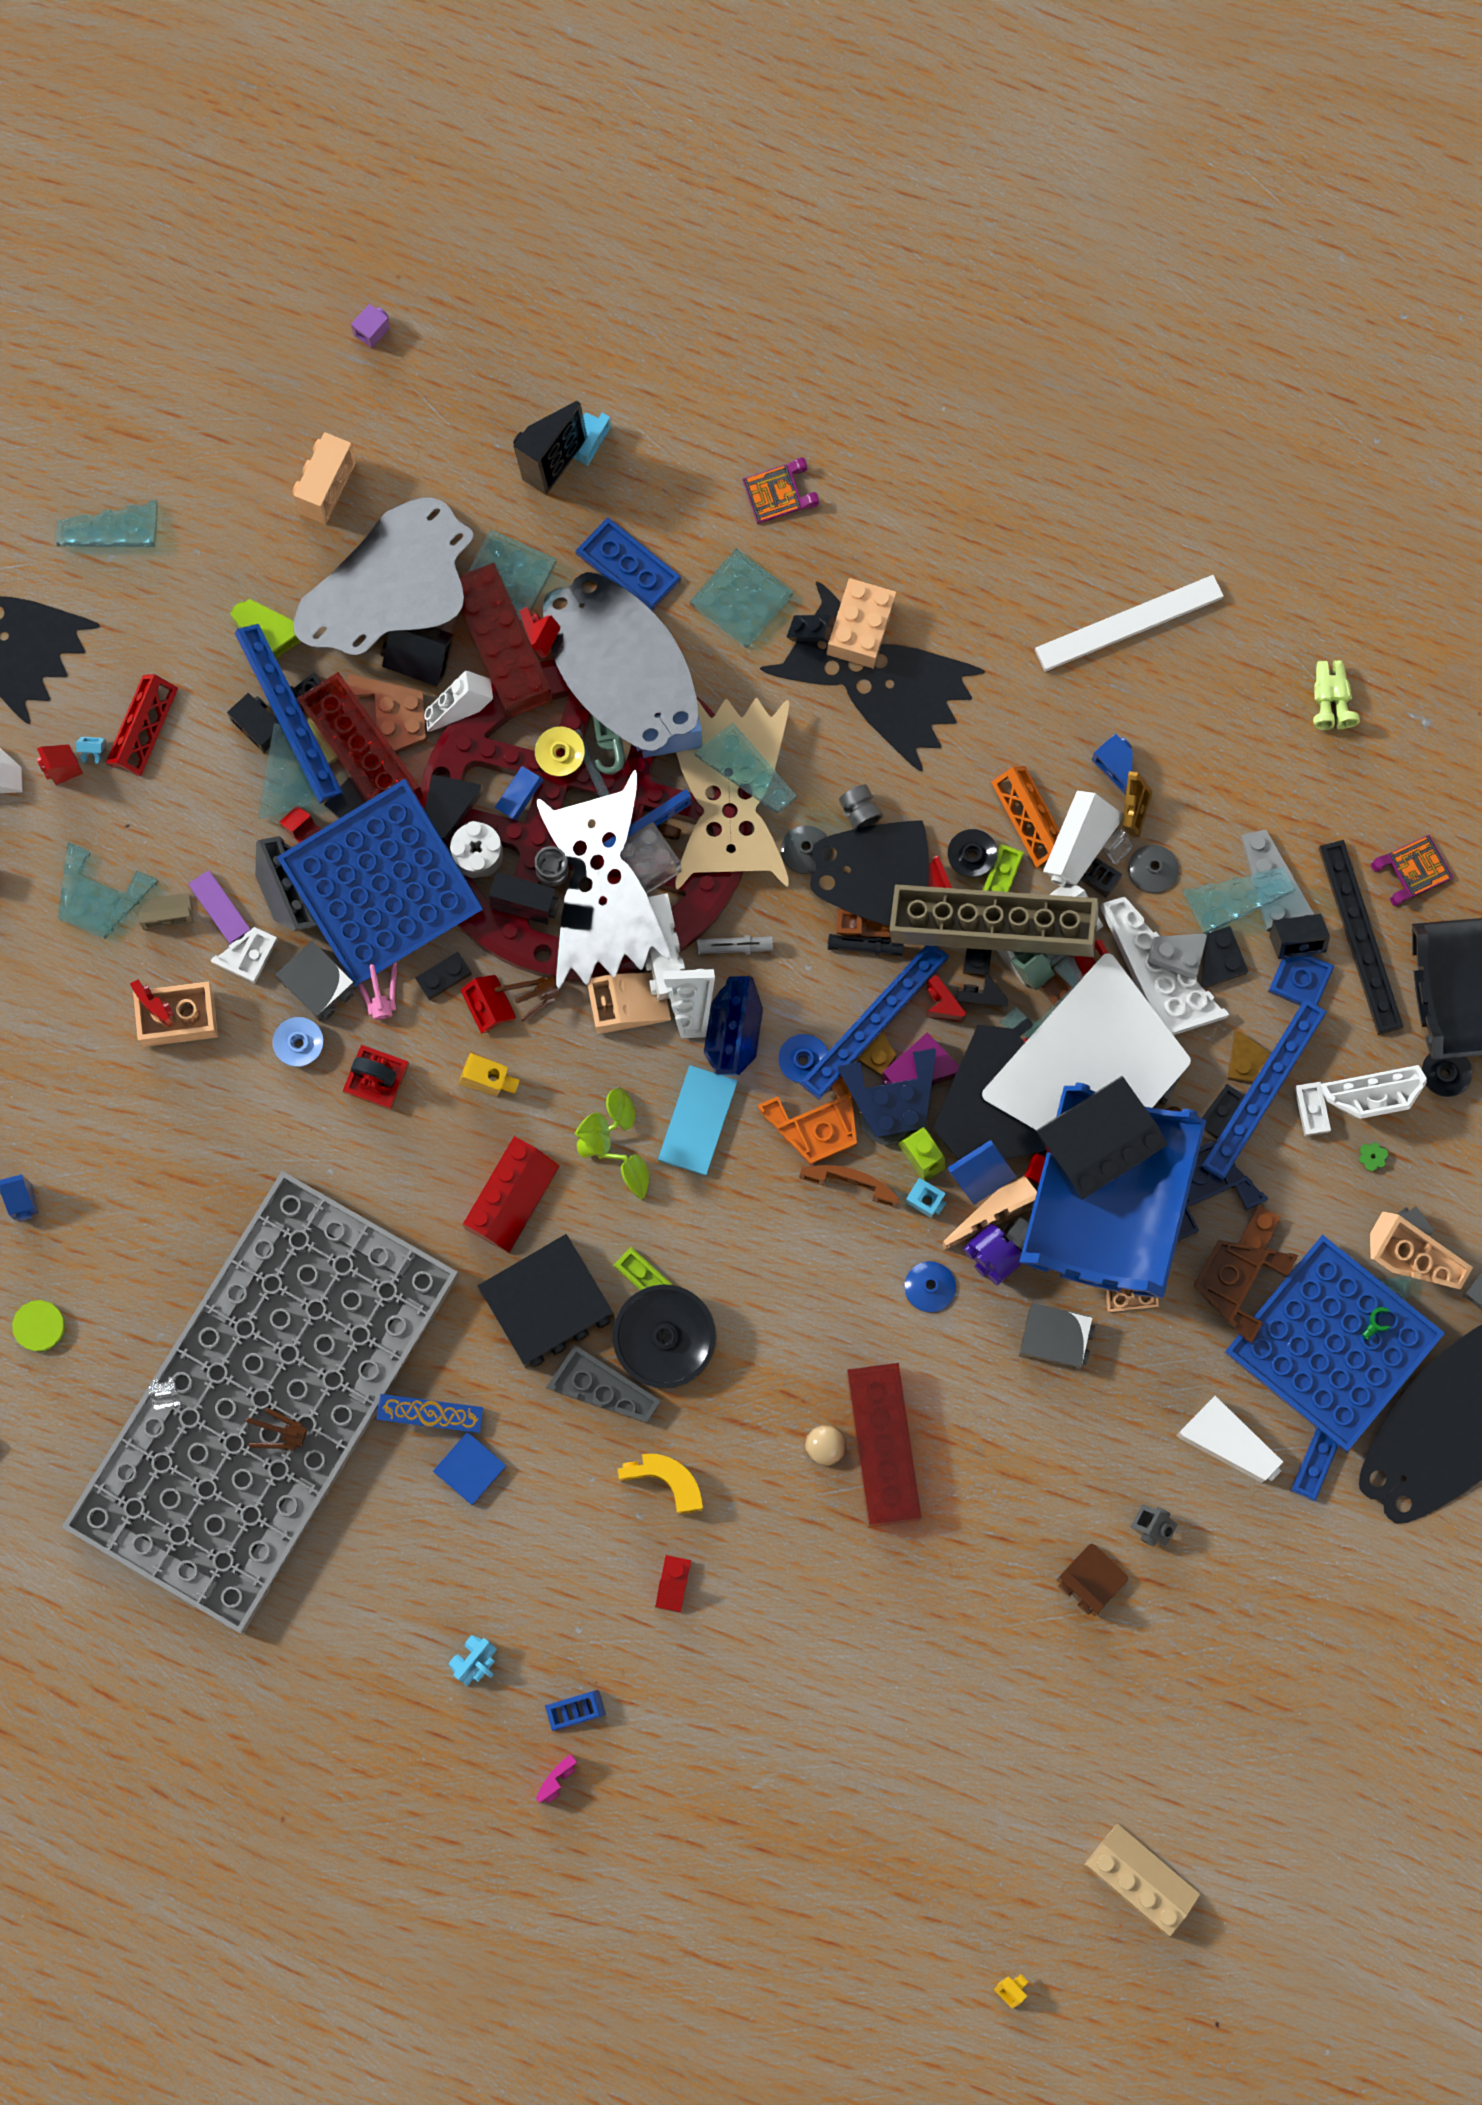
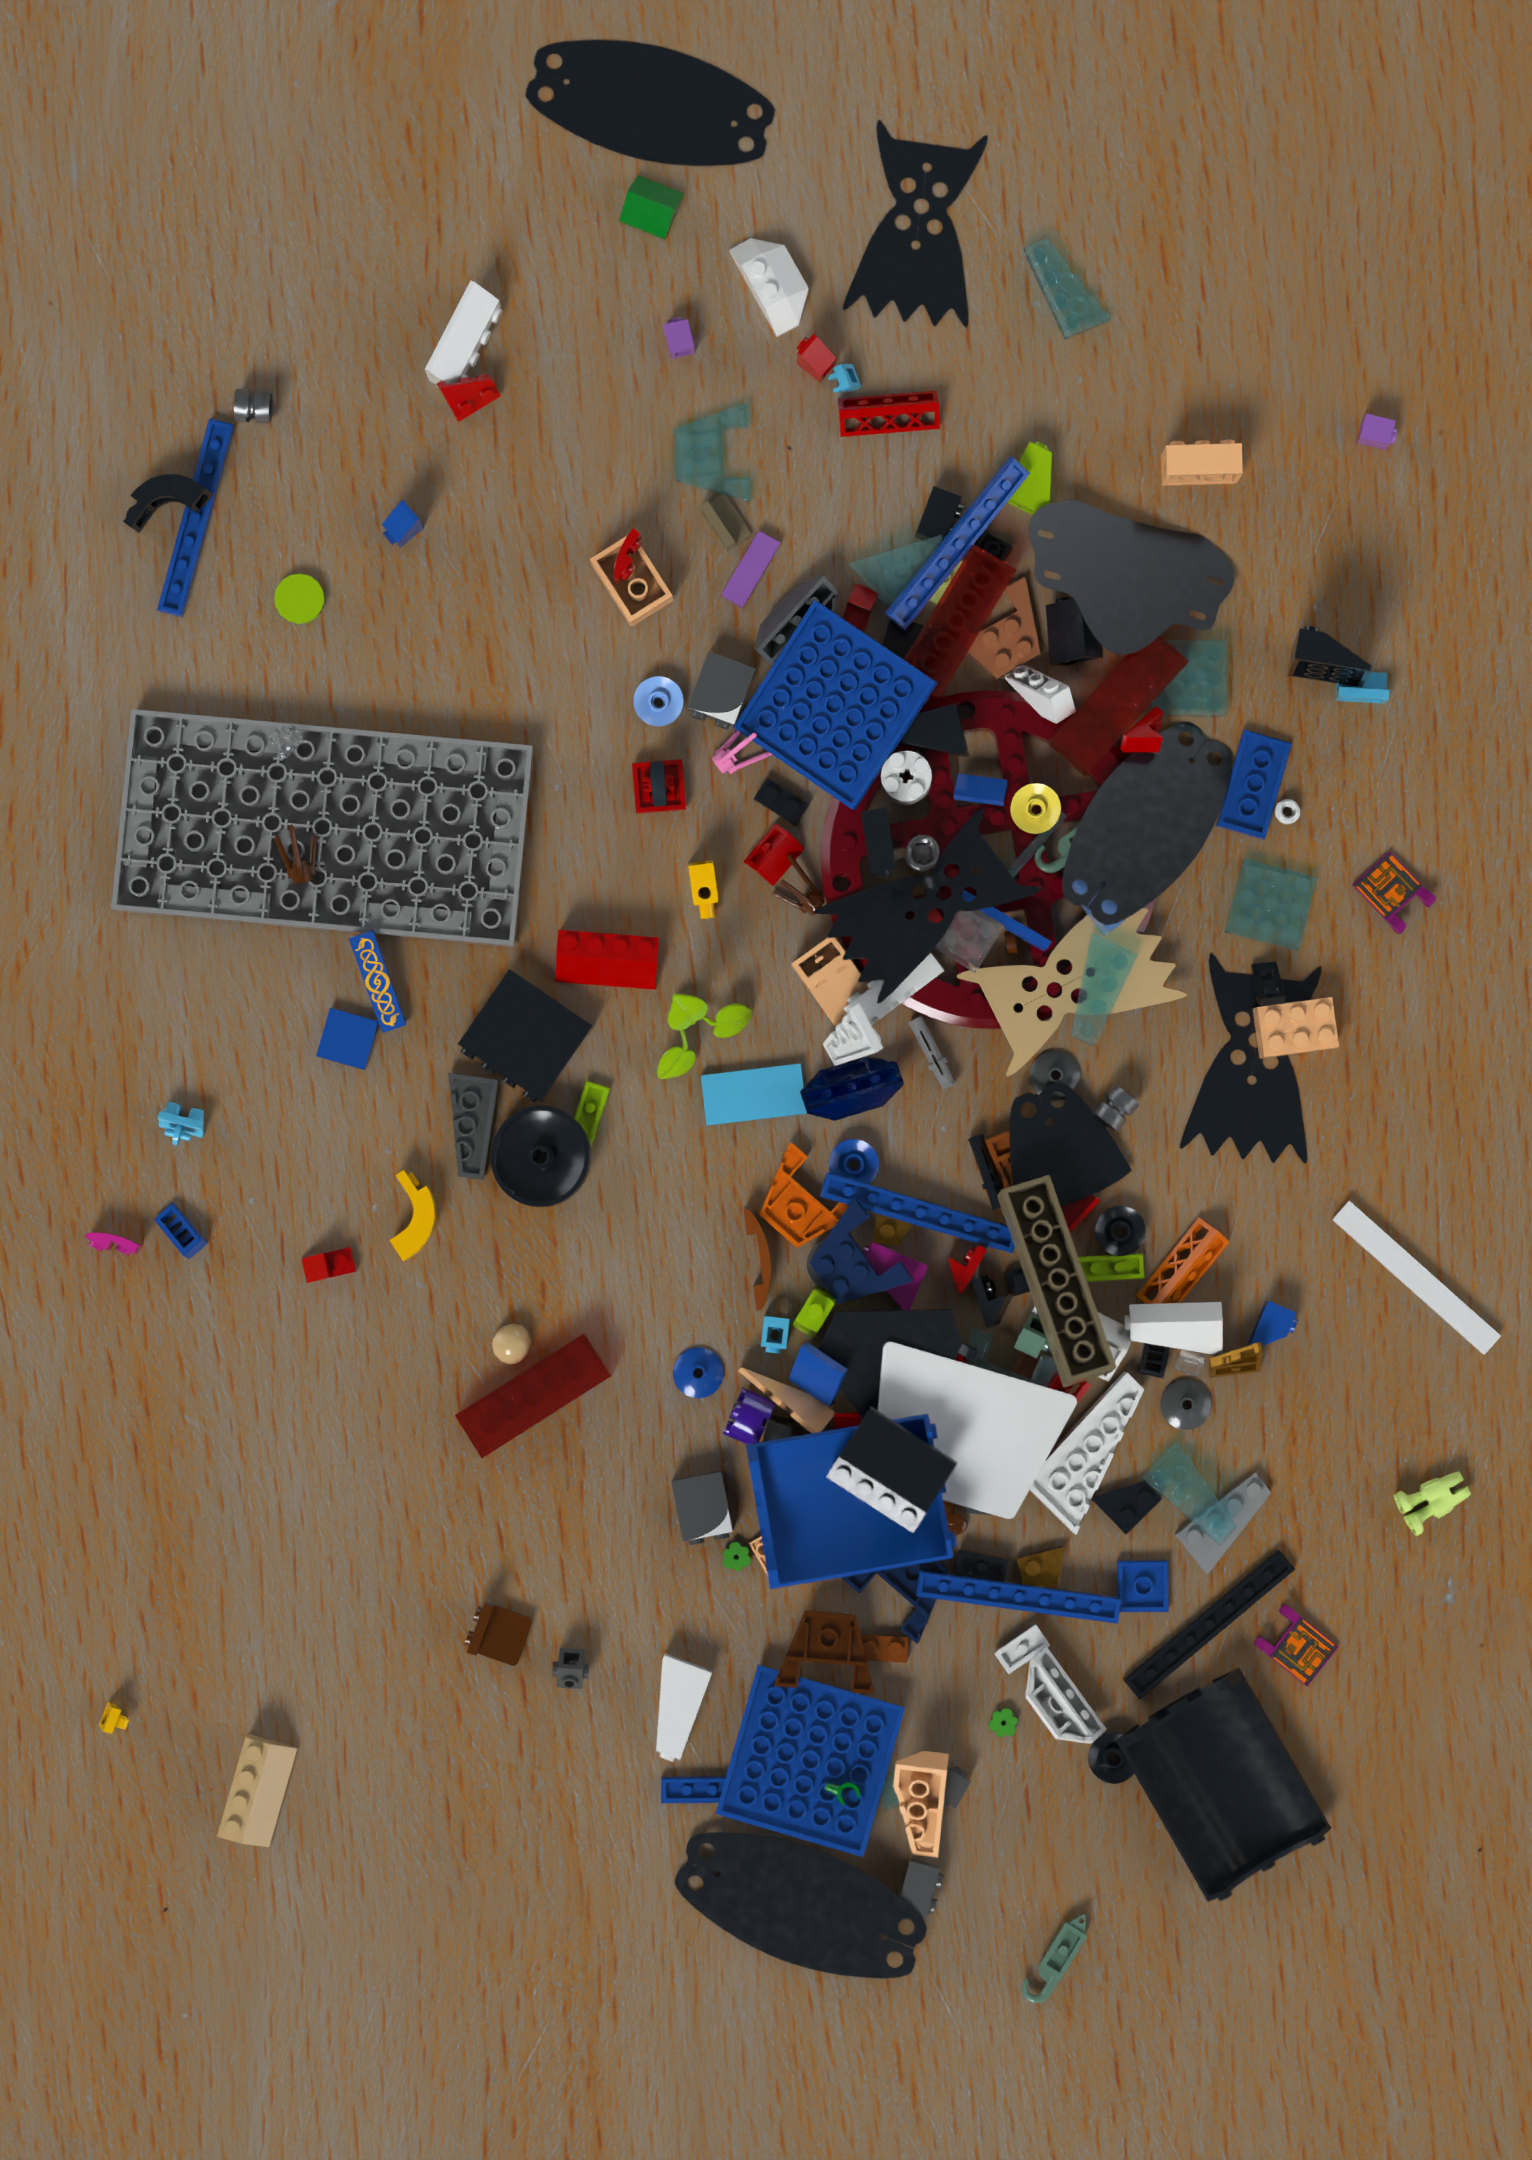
camera: 65 degrees right, 10 degrees up
(248, 955) = (717, 616): white wing -> none
(666, 540) = (1287, 803): none -> white plate
(1114, 1321) = (737, 1564): none -> bright green plant
(1178, 953) = (1111, 1463): light grey wing -> none
(1299, 936) = (1179, 1567): black brick -> none

